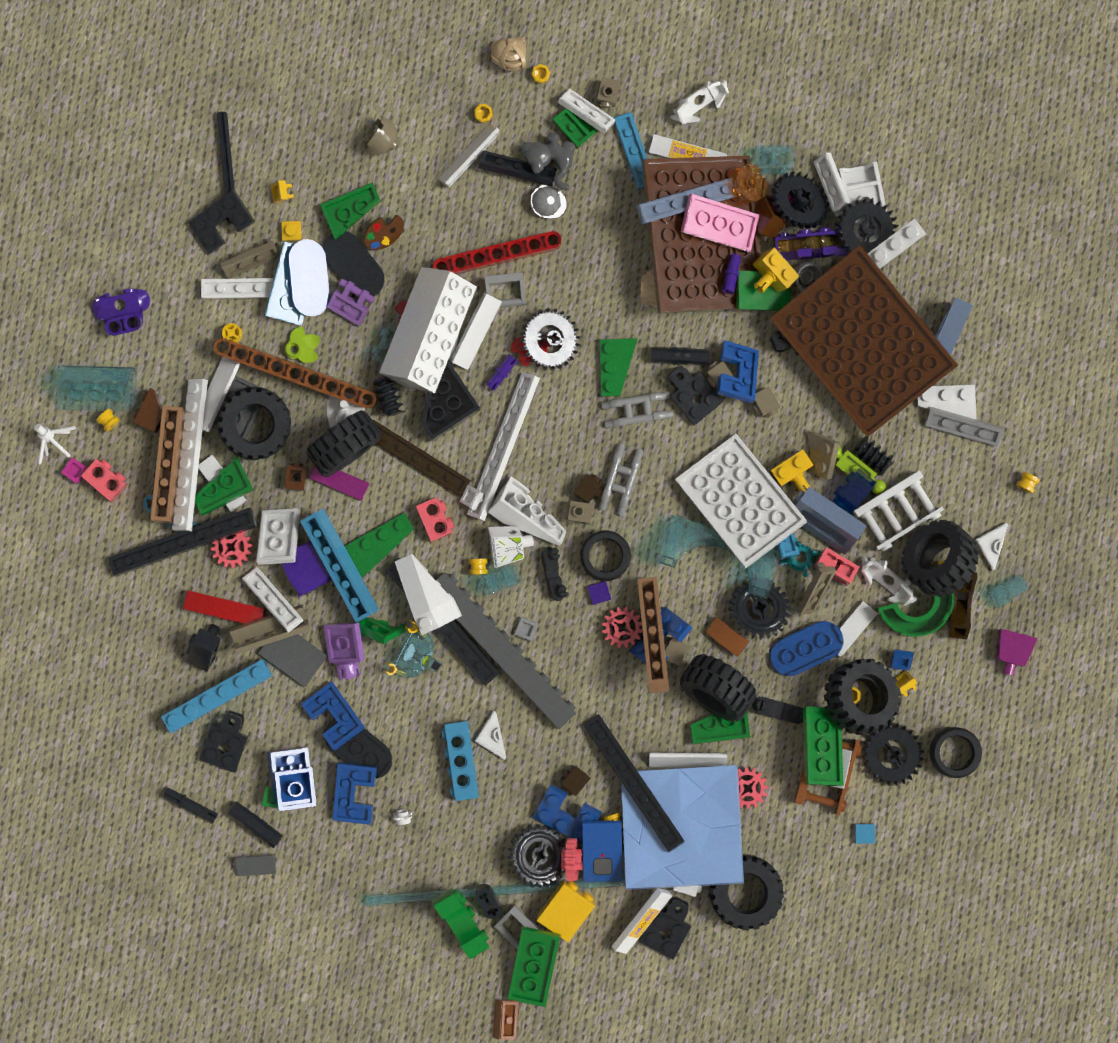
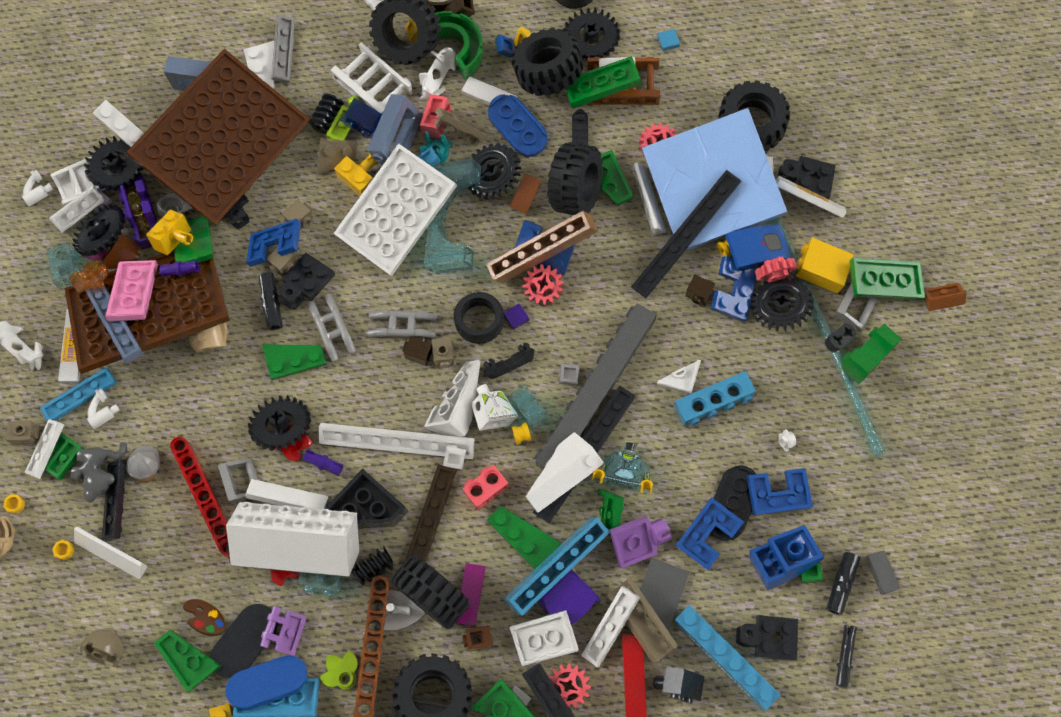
camera: 105 degrees left, 15 degrees down
(604, 167) = (104, 415): none -> white plant
(863, 145) = (38, 193): none -> white plant

